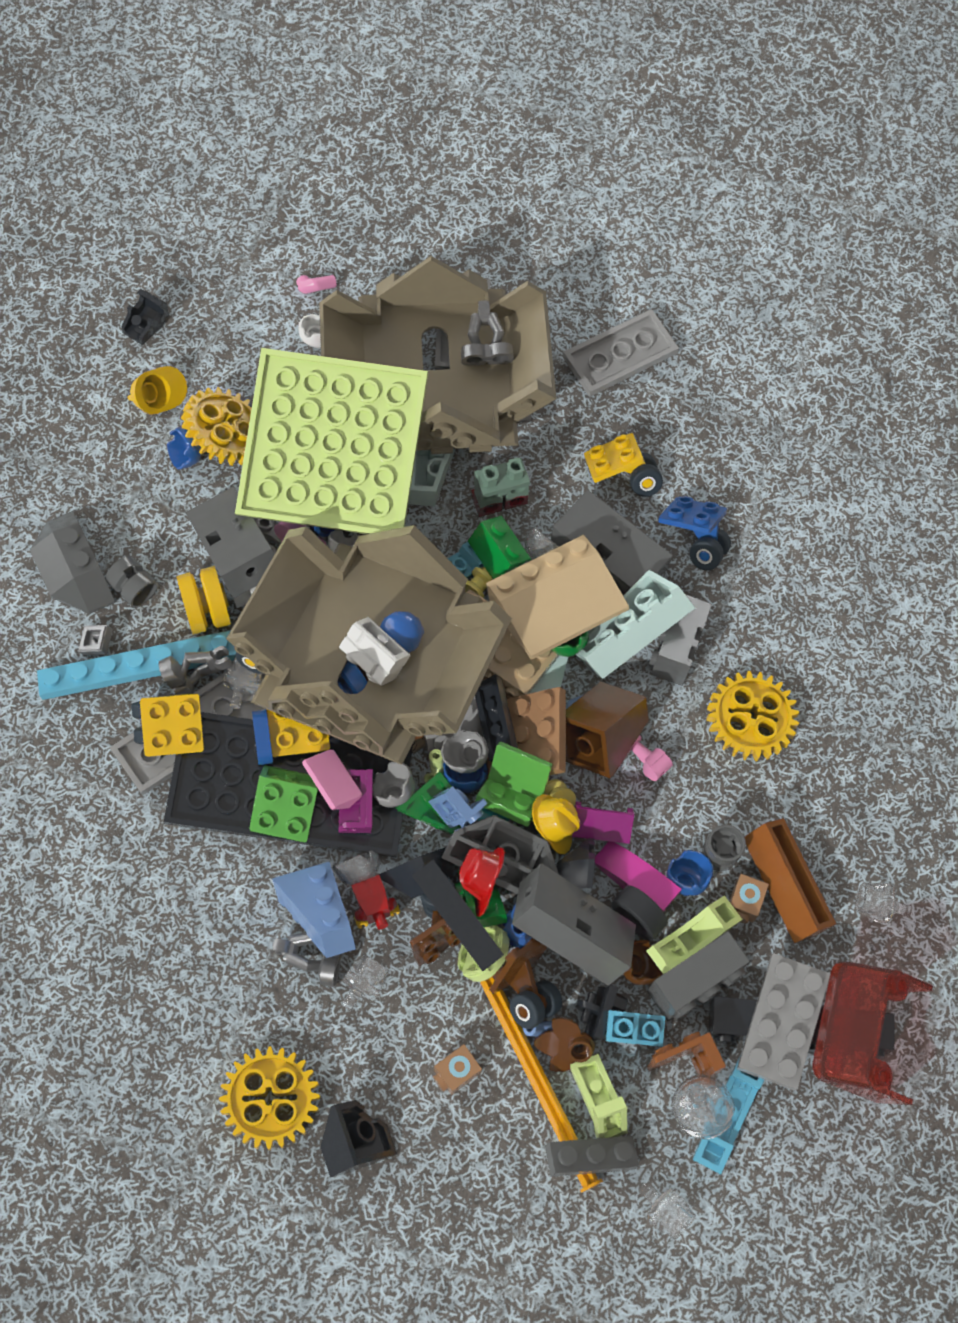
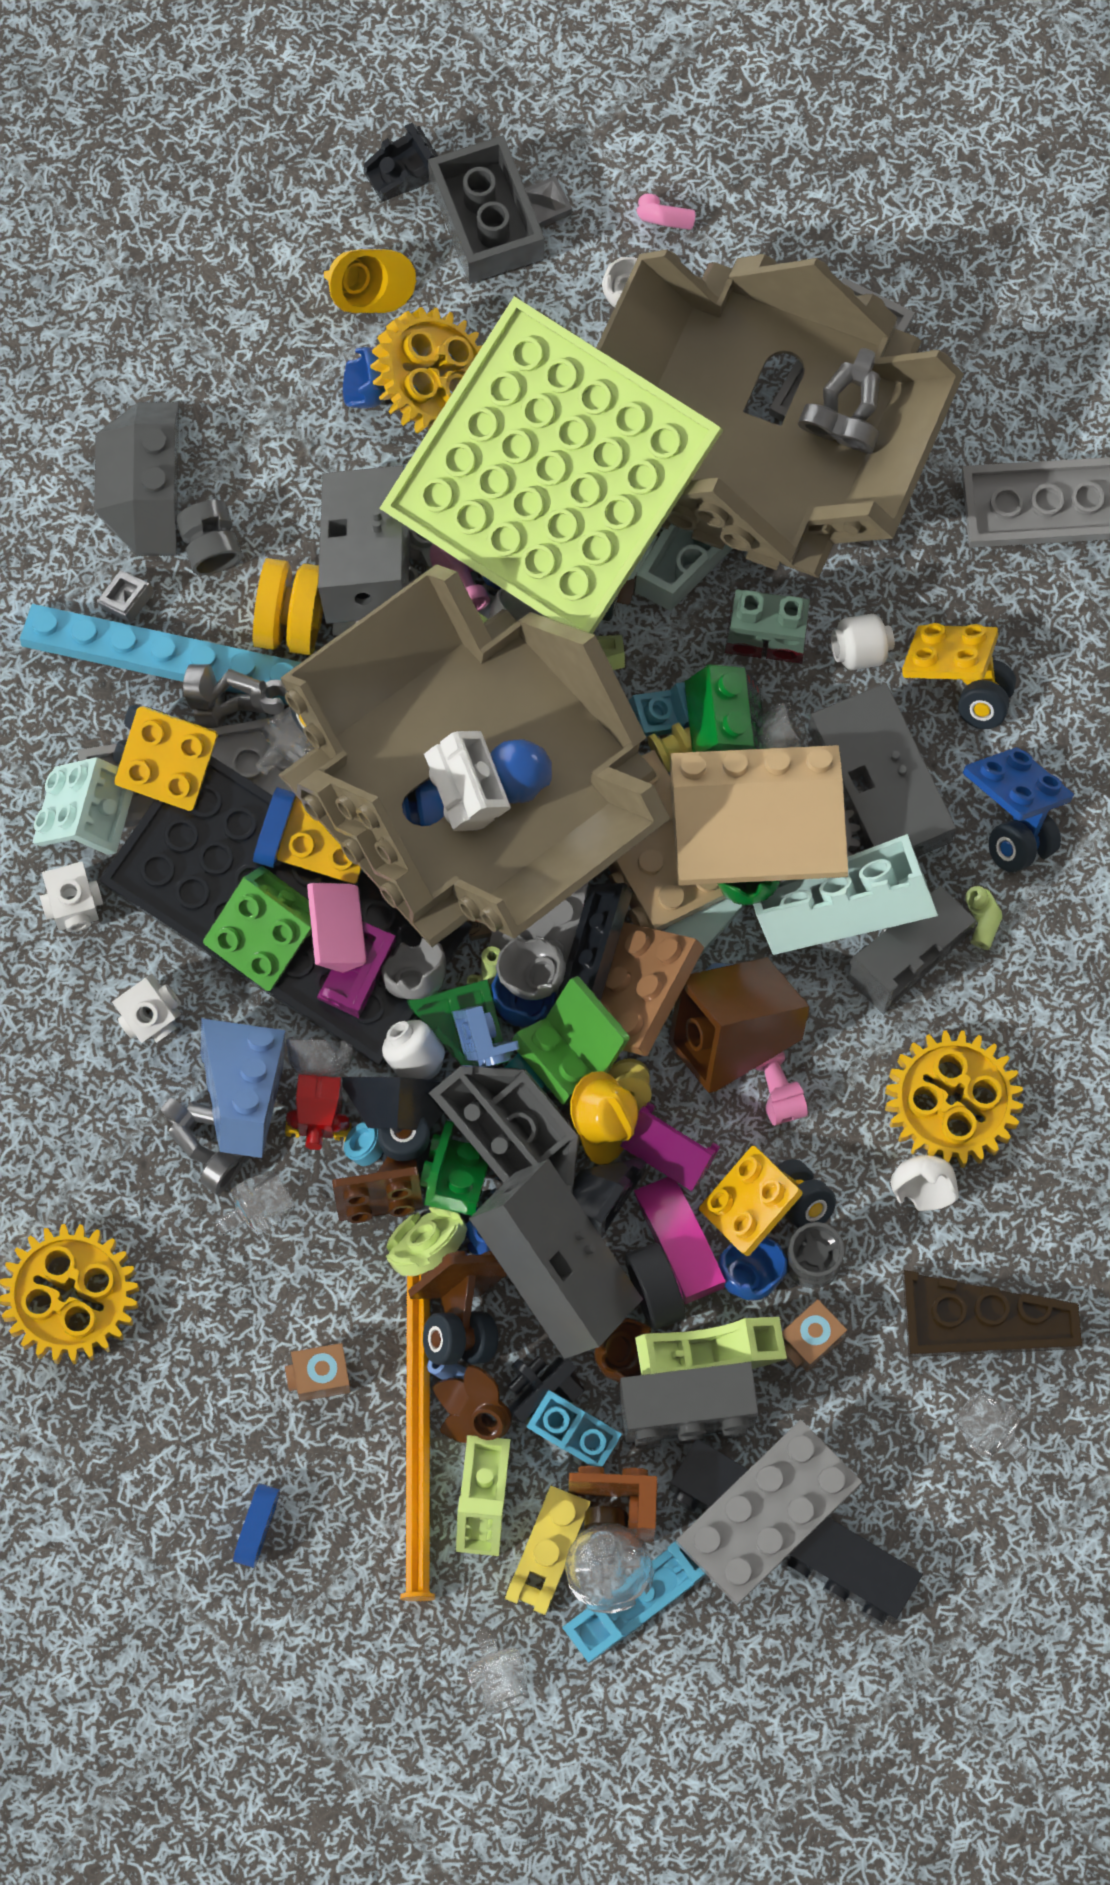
camera: 30 degrees right, 5 degrees up
(130, 779) = (83, 806): none -> light aqua bracket
(149, 841) = (70, 897): none -> white brick
(209, 321) = (486, 209): none -> dark grey brick
(228, 879) = (133, 1014): none -> white brick
(241, 306) = (548, 201): none -> flat silver tile
(354, 1139) = (148, 1394): black slope -> none
(412, 910) = (362, 1145): none -> medium azure tile
(415, 837) = (413, 1050): none -> white head
(457, 915) = (409, 1175): black sticker -> none
(466, 1191) = (256, 1525): none -> blue beam
(479, 875) = (461, 1134): red piece -> none
(558, 474) = (862, 642): none -> white head
(591, 1156) = (434, 1559): dark grey plate -> none
(656, 1112) = (548, 1548): none -> light yellow plate
(672, 828) = (760, 1194): none -> yellow plate
(679, 1075) = (605, 1514): none -> dark brown tile
(711, 596) = (987, 915): none -> yellowish green arm
(764, 773) = (926, 1181): none -> white hair
(789, 880) = (879, 1338): dark orange brick -> none
(845, 838) = (973, 1319): none -> dark brown wing
(853, 1029) = (851, 1558): clear red windscreen -> none

